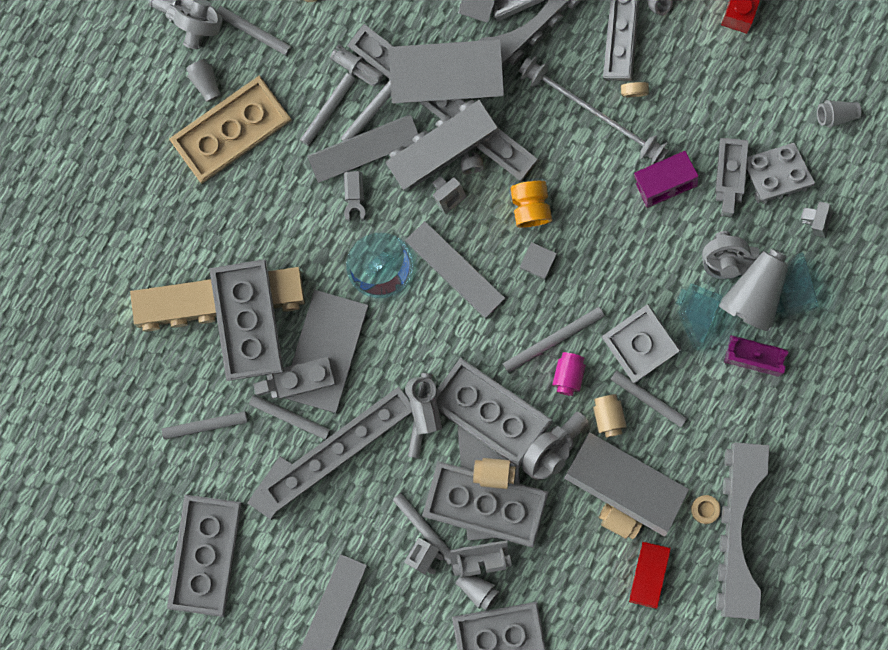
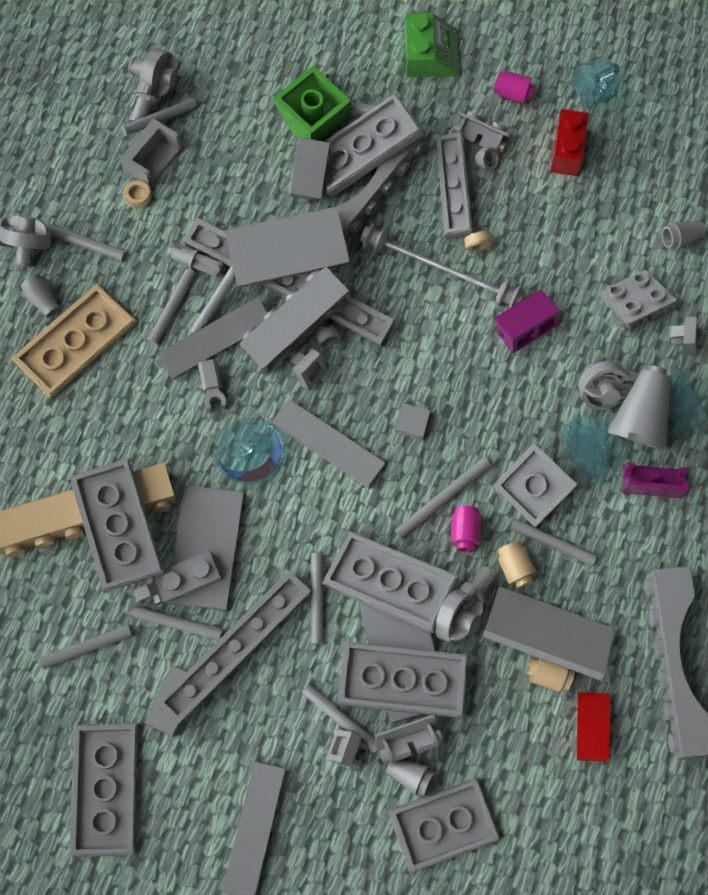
camera: 15 degrees left, 10 degrees down
(425, 408) = (321, 587): light grey piece -> none
(494, 473) = (407, 642): tan brick -> none
(531, 204) = (394, 361): light orange wheel -> none
(705, 509) = (636, 647): tan tile -> none
(731, 173) = (590, 306): light grey hinge -> none

